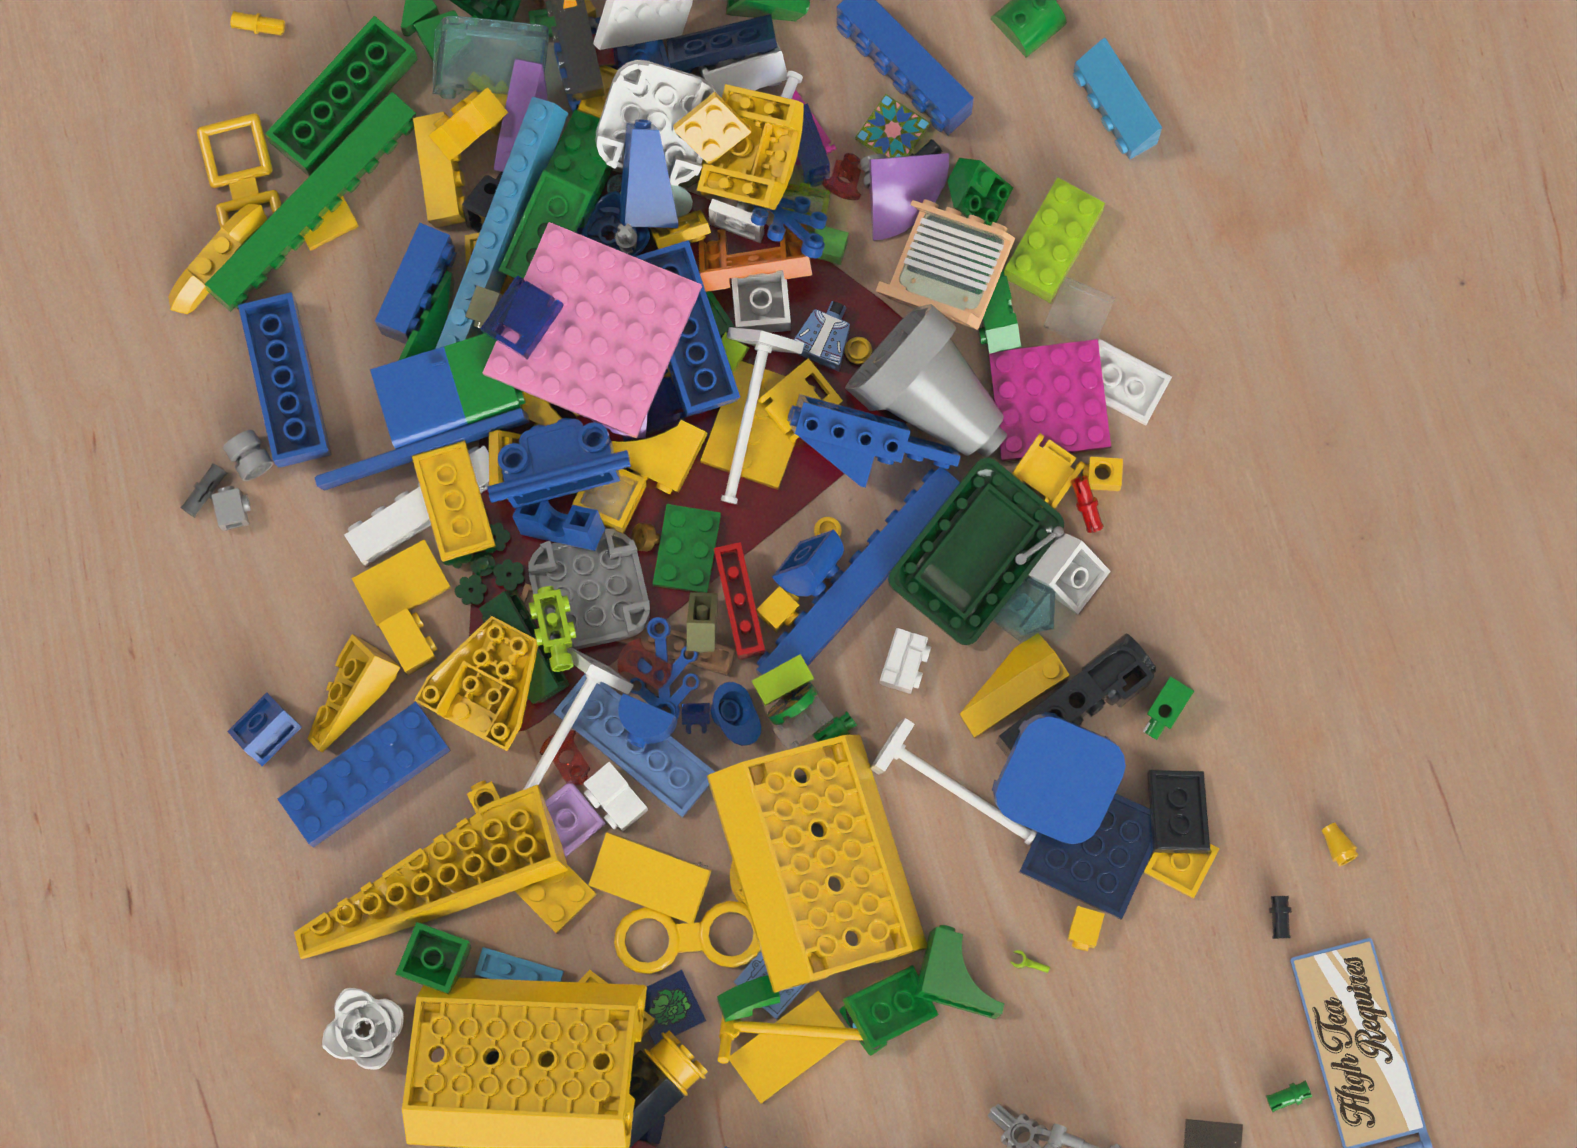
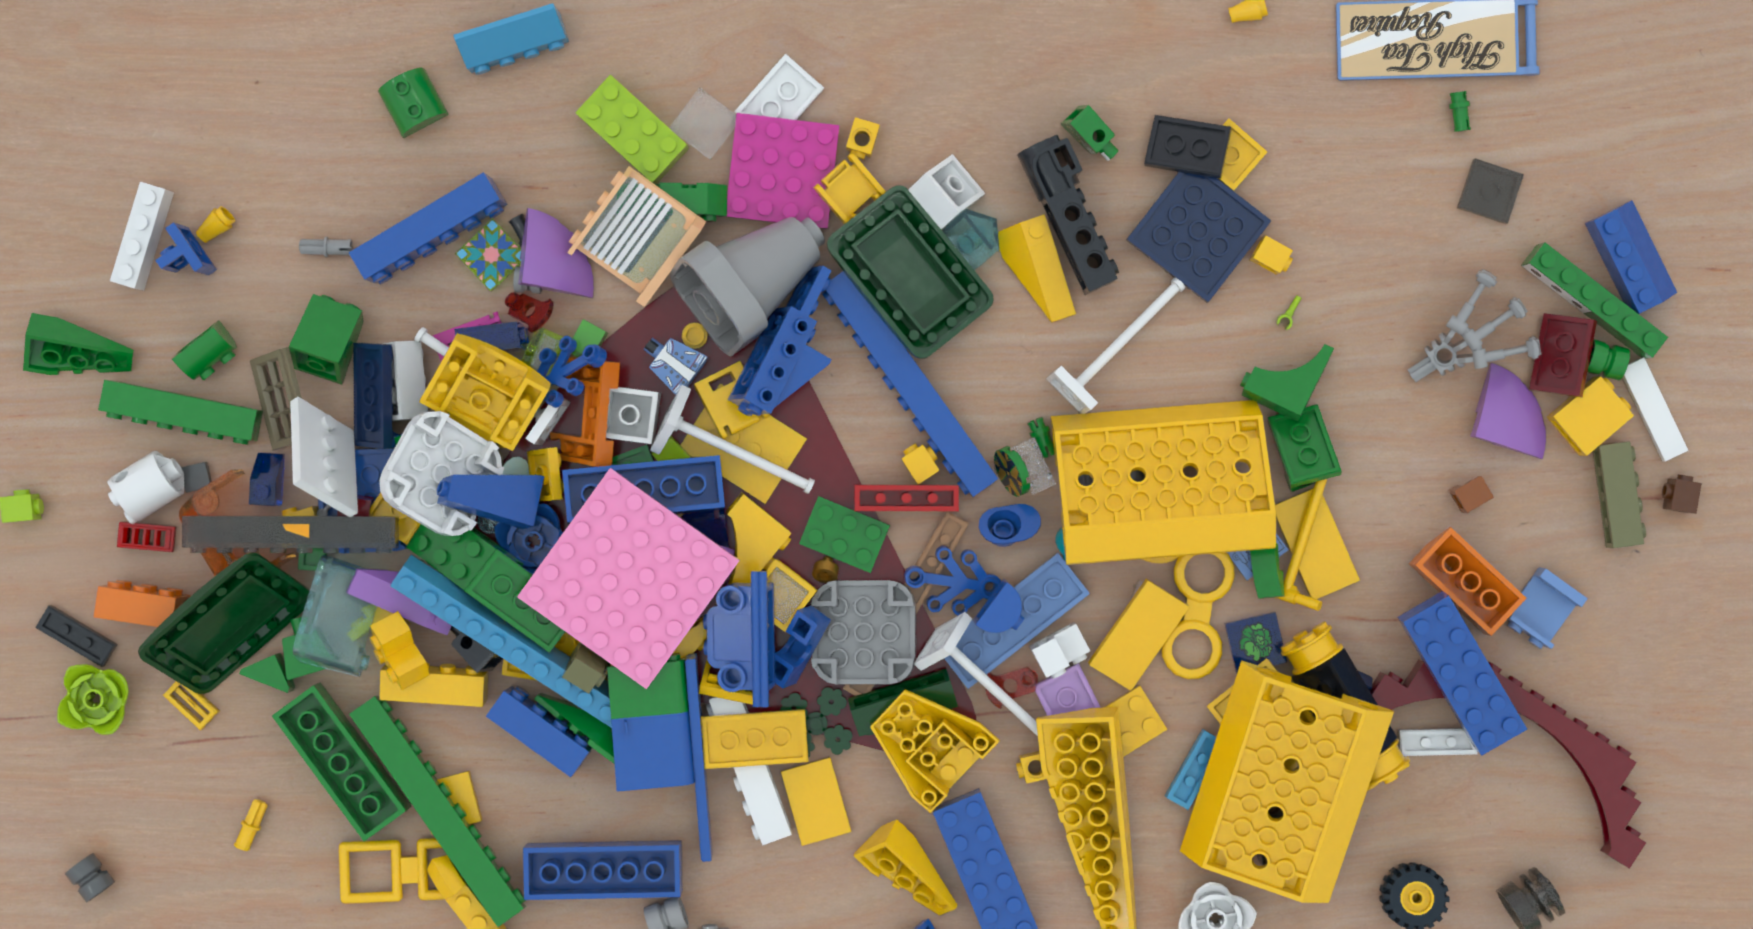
camera: 75 degrees left, 10 degrees up
(407, 640) = (872, 806): yellow brick -> none
(433, 958) = (1169, 845): green slope -> none
(526, 312) = (600, 637): clear blue container -> none
(553, 624) = (892, 673): lime brick -> none
(626, 238) = (545, 527): light grey axle -> none
(629, 659) = (938, 610): clear red piece -> none
(696, 714) = (999, 560): clear blue tile -> none
(702, 622) = (919, 536): olive brick -> none
(712, 128) = (460, 424): plate -> none
(782, 680) = (989, 475): lime tile -> none
(810, 564) = (888, 426): blue brick -> none
(827, 524) = (856, 402): yellow plate -> none
(904, 661) = (993, 360): white brick -> none
(978, 190) = (570, 190): green slope -> none
(1021, 558) = (926, 232): light grey hinge -> none
(1059, 778) = (1140, 246): blue tile -> none
(1087, 504) = (888, 160): red pin -> none
(1280, 916) = (1296, 77): black pin -> none

